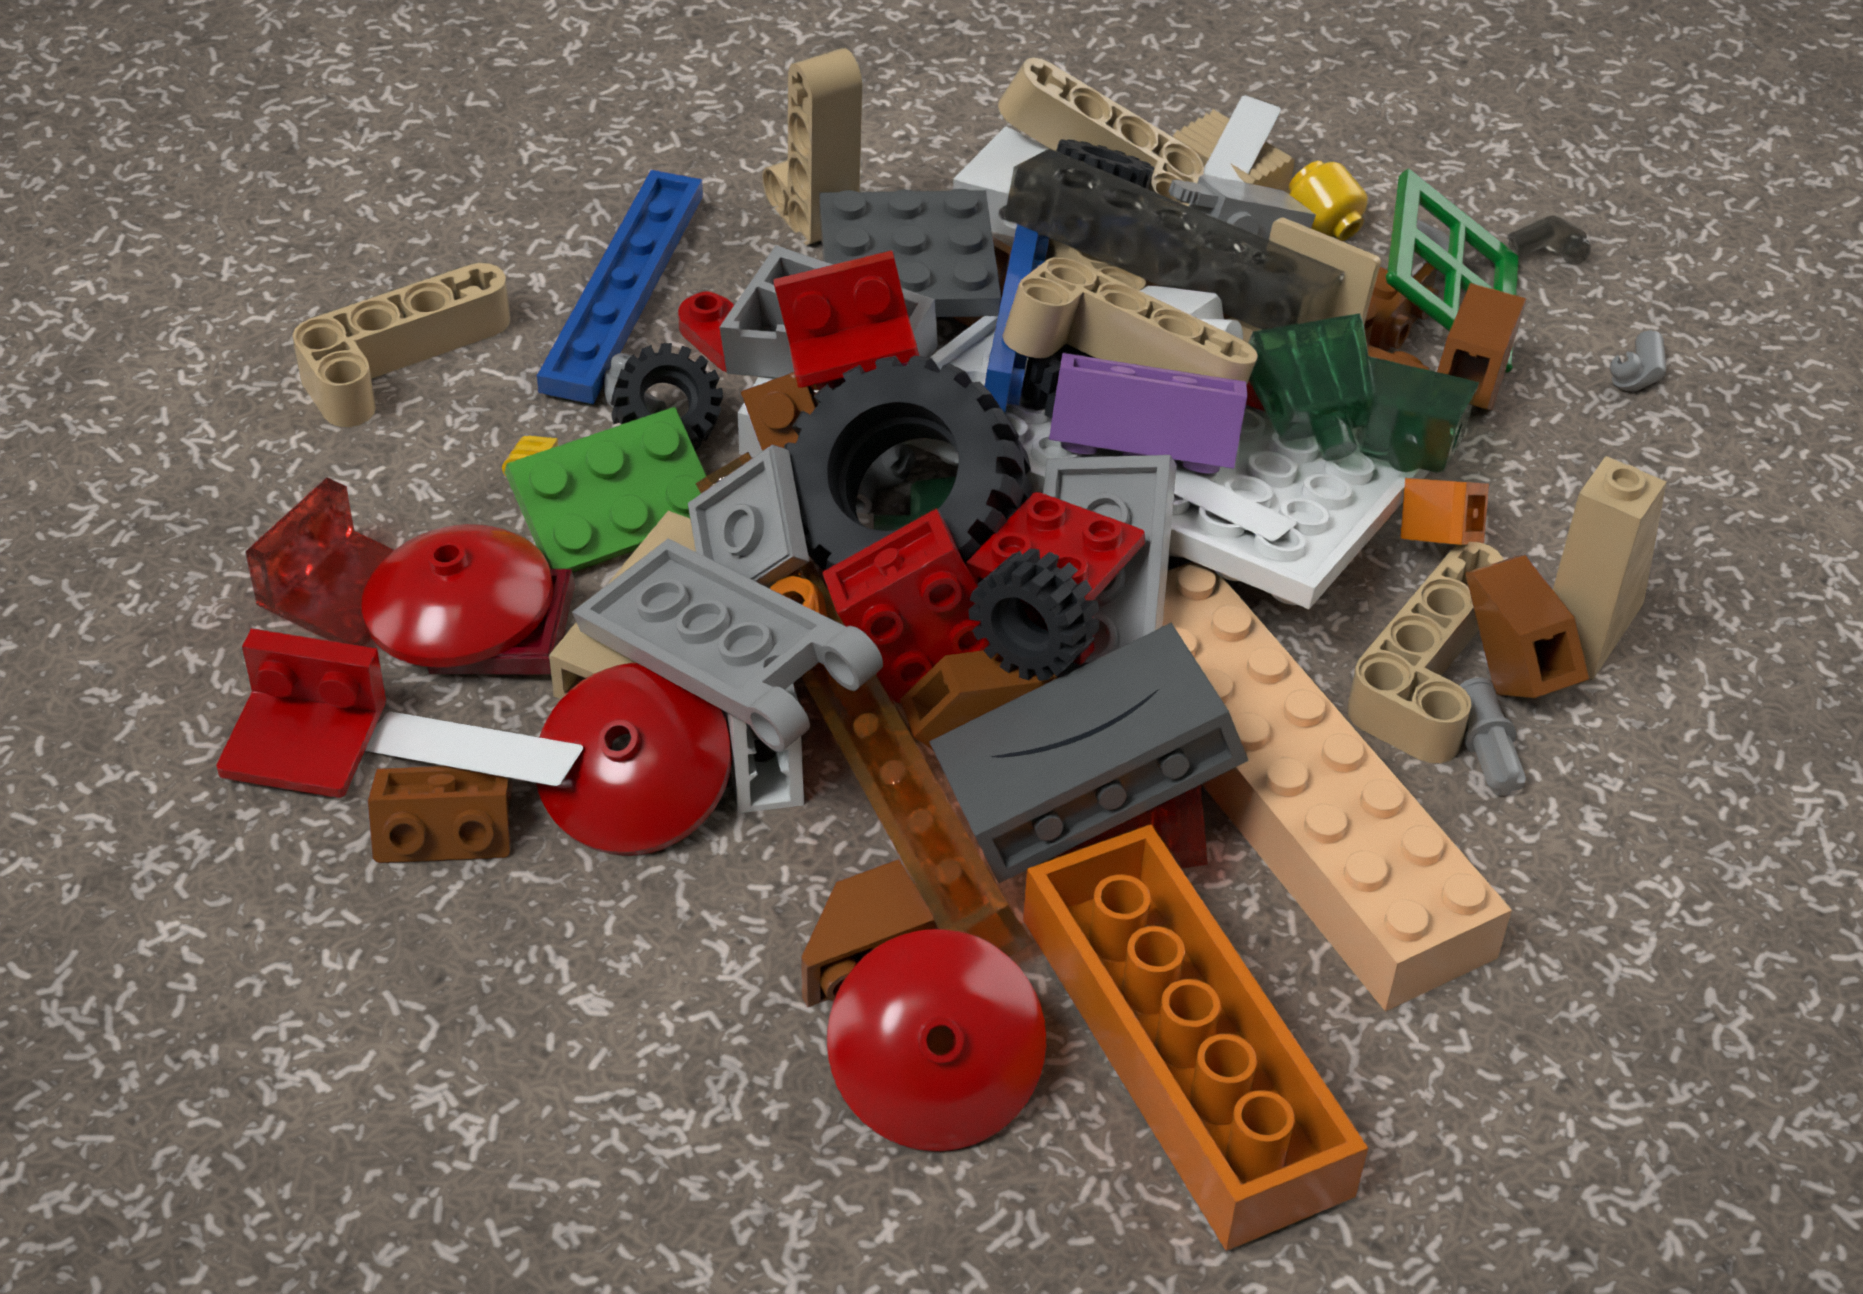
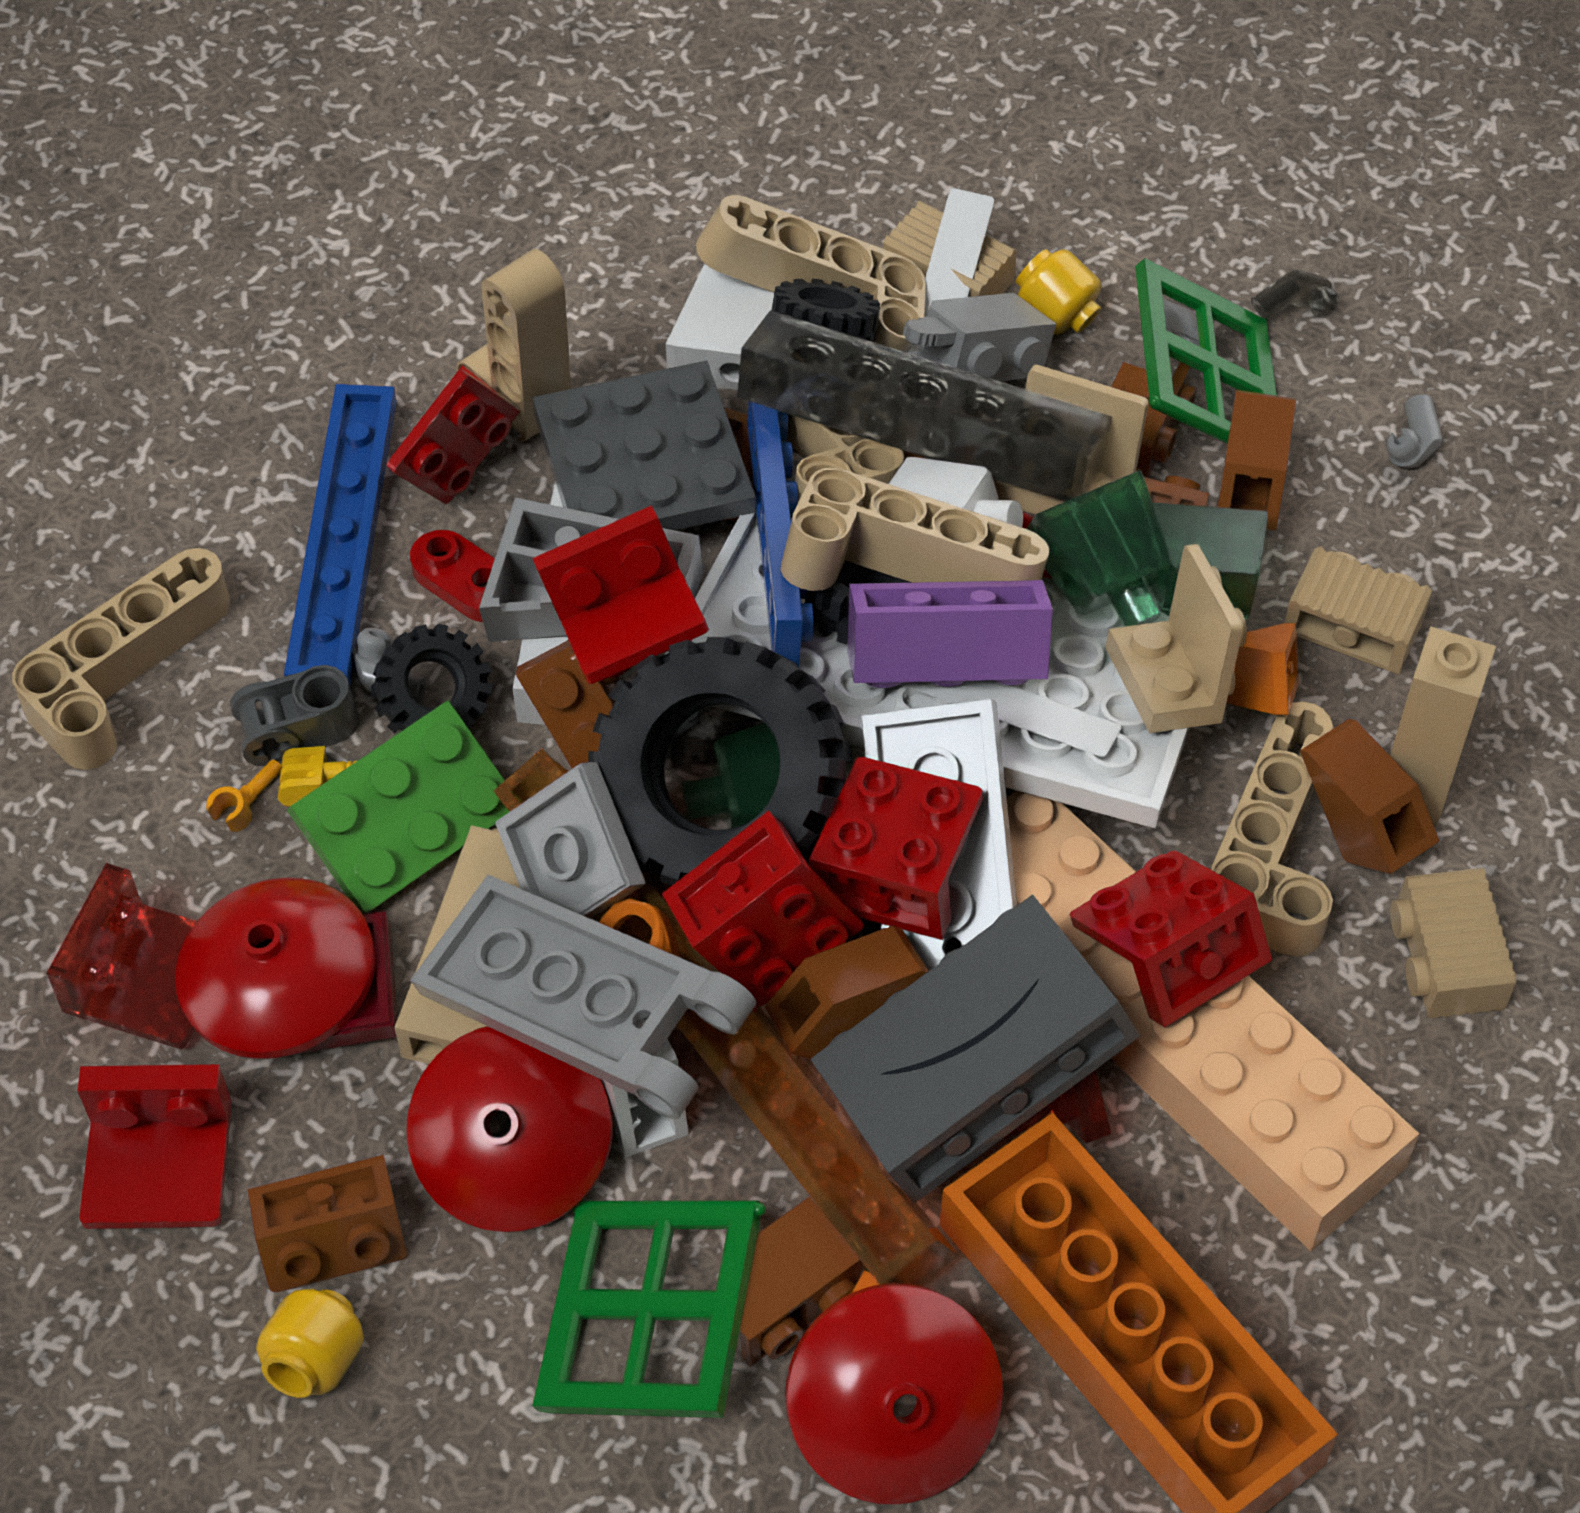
camera: 10 degrees left, 10 degrees up
(393, 901) = (309, 1342): none -> yellow head
(463, 471) = (242, 798): none -> light orange hand
(474, 748) = (343, 1148): white sticker -> none
(540, 404) = (294, 713): none -> dark grey piece
(739, 212) = (453, 437): none -> red bracket
(785, 935) = (646, 1305): none -> green window
(1055, 598) = (893, 912): black tyre -> none
(1311, 693) = (1180, 930): none -> red bracket
(1372, 487) = (1184, 665): none -> tan bracket
(1492, 738) = (1354, 920): light grey axle -> none
(1538, 480) = (1358, 609): none -> tan brick
(1586, 771) = (1453, 943): none -> tan brick

